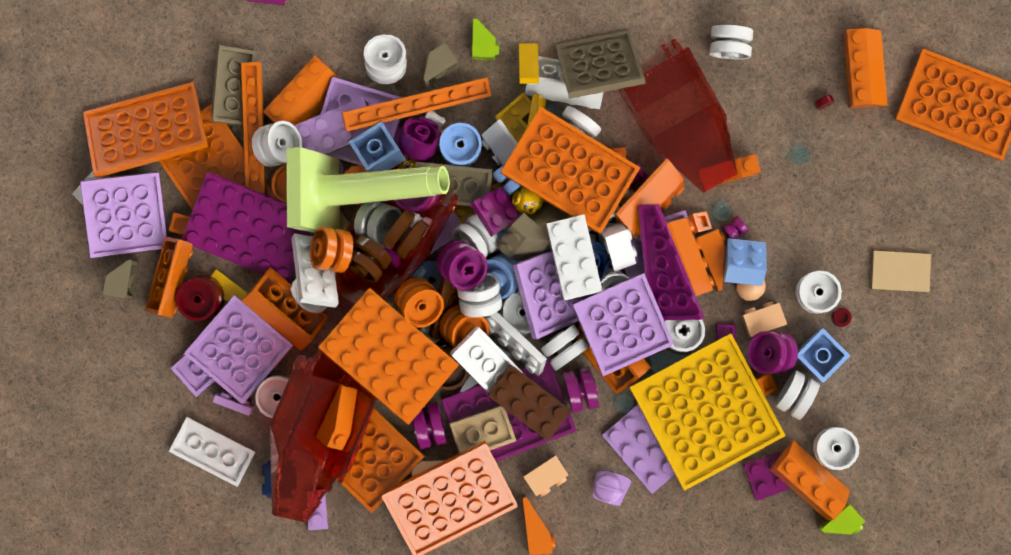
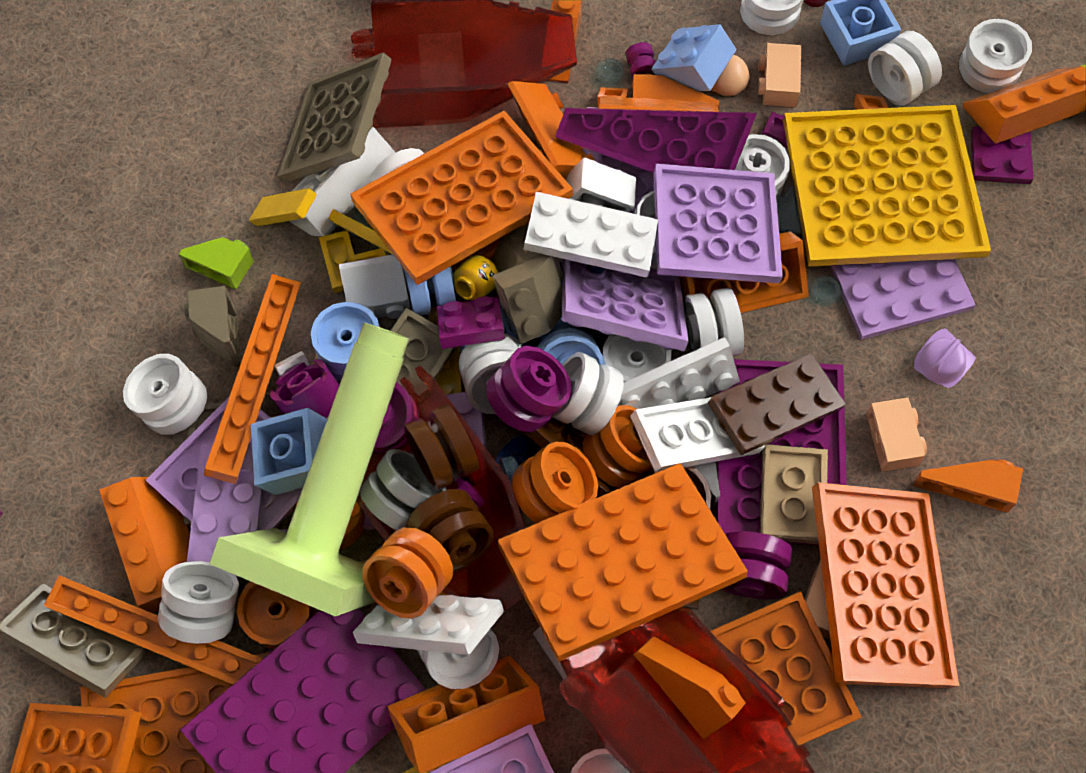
camera: 60 degrees left, 20 degrees down
(581, 389) = (786, 327): magenta wheel -> none
(772, 352) = (824, 87): magenta wheel -> none

